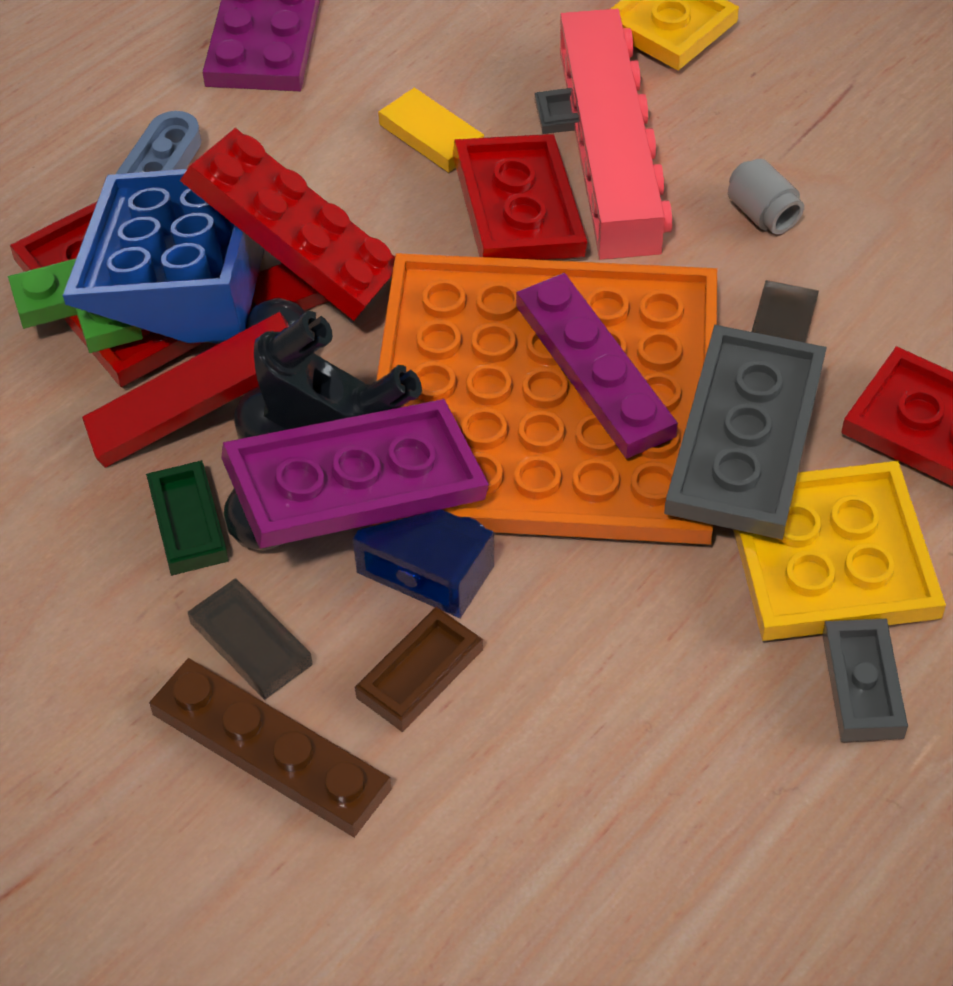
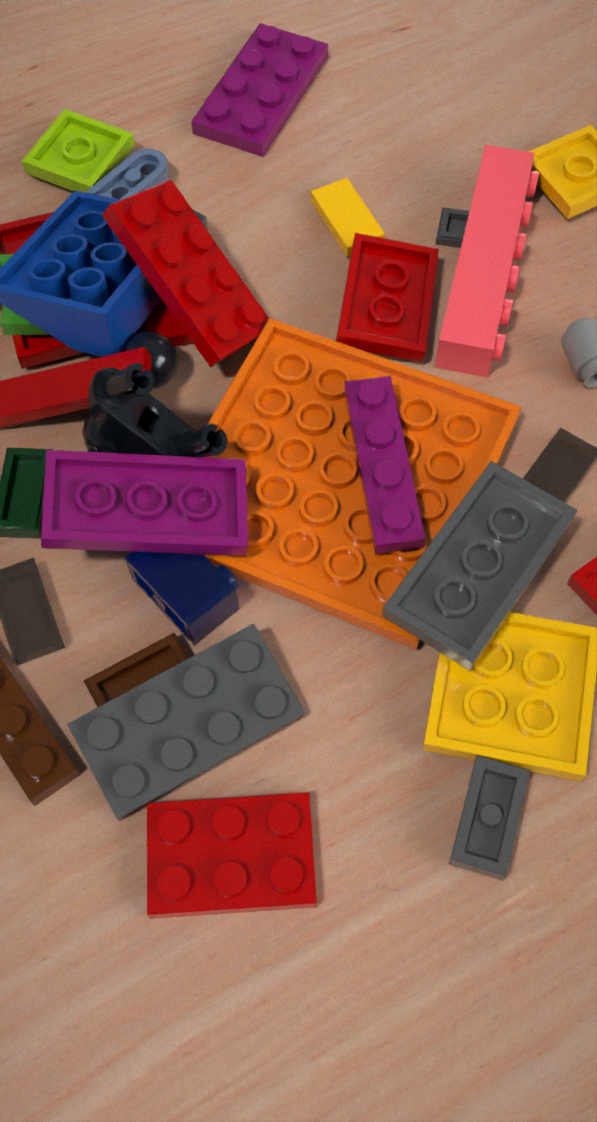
camera: 20 degrees right, 10 degrees up
(80, 137) = (77, 151): none -> lime plate
(491, 691) = (185, 721): none -> dark grey plate
(602, 810) = (230, 855): none -> red plate

